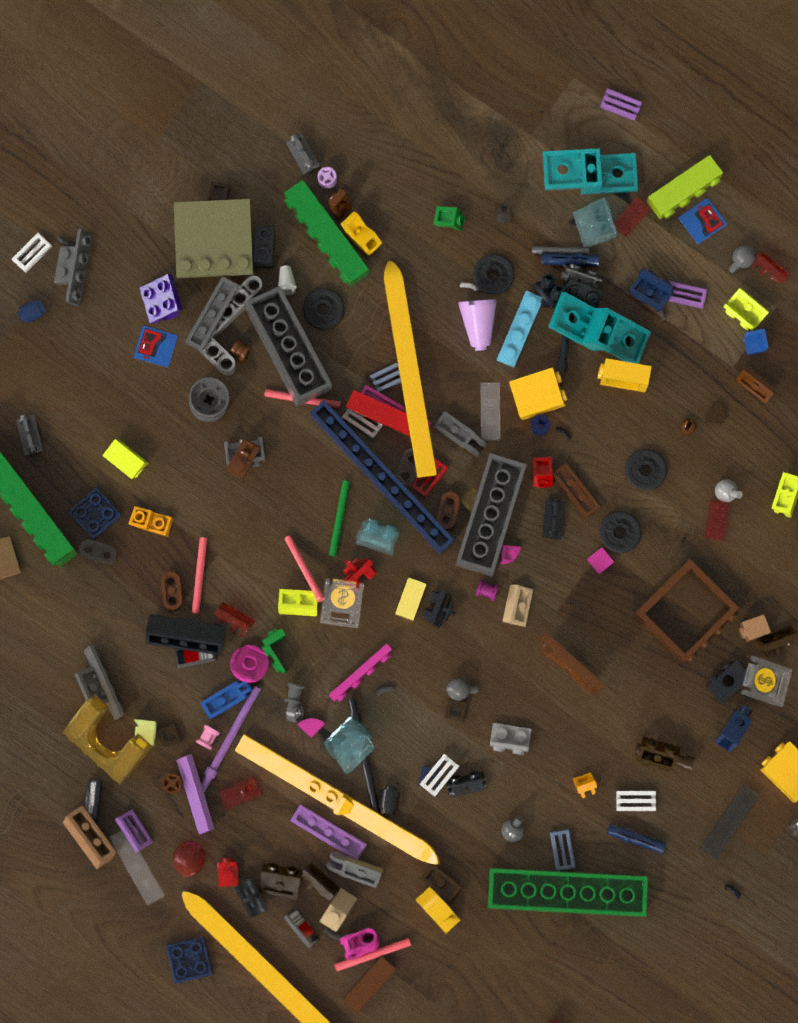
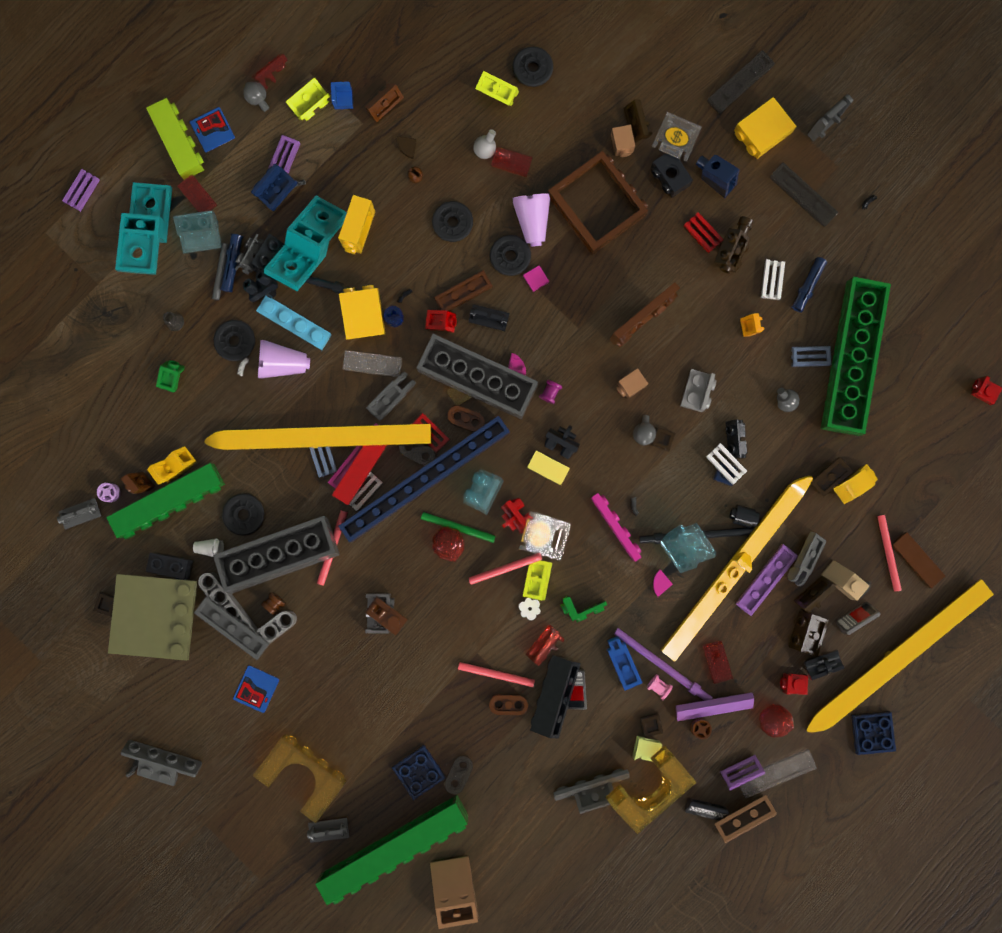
camera: 85 degrees left, 5 degrees up
(31, 311) = (200, 813): dark blue brick -> none
(36, 258) = (145, 801): white tile -> none
(75, 427) = (289, 752): none -> clear yellow arch
(125, 459) = (367, 735): neon yellow hinge -> none
(151, 521) = (434, 716): light orange slope -> none
(161, 299) = (208, 677): plate -> none
(211, 389) = (311, 635): dark grey wheel -> none
(249, 663) = (591, 636): dark pink tile -> none
(273, 603) = (531, 614): none -> white plant
(294, 710) = (644, 596): dark grey connector -> none
(321, 510) = (448, 543): none -> clear red hair
(358, 943) = (880, 565): dark pink piece -> none
(506, 670) = (631, 384): none -> medium nougat brick
(518, 605) = (568, 365): tan slope -> none
(661, 548) = (533, 217): none -> lavender cone
(683, 711) = (708, 227): none -> red tile

